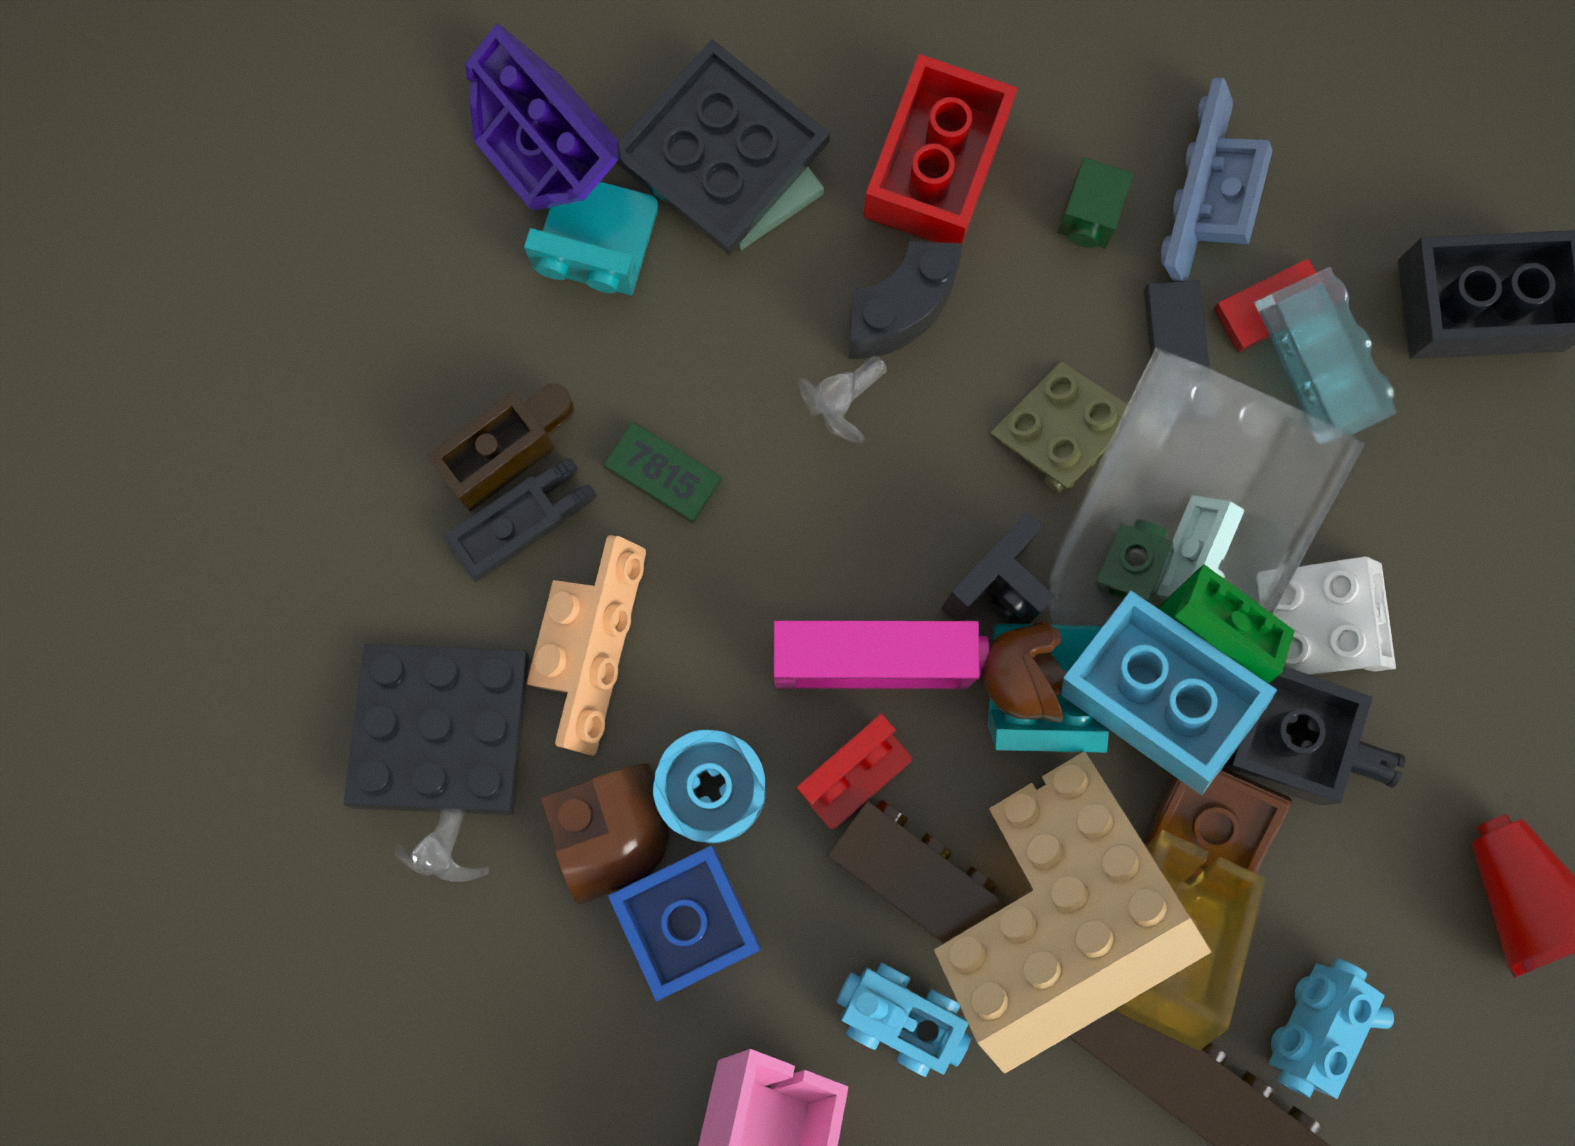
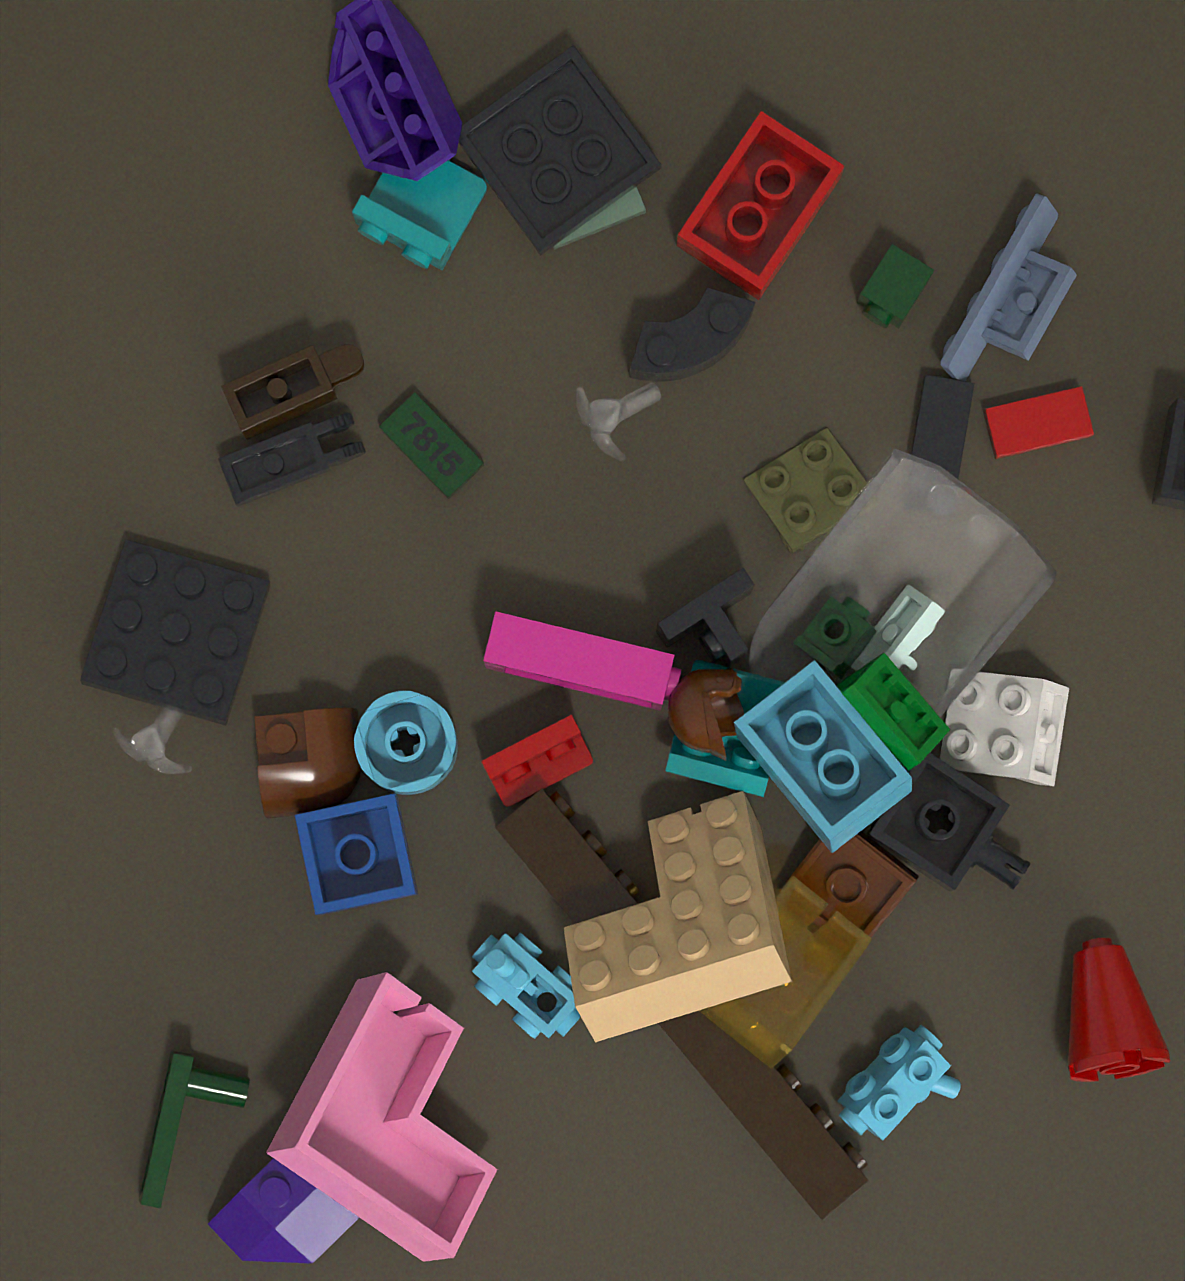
camera: 15 degrees right, 5 degrees up
(584, 643) = (324, 585): light nougat bracket -> none
(1326, 353) = (1068, 485): clear light blue brick -> none

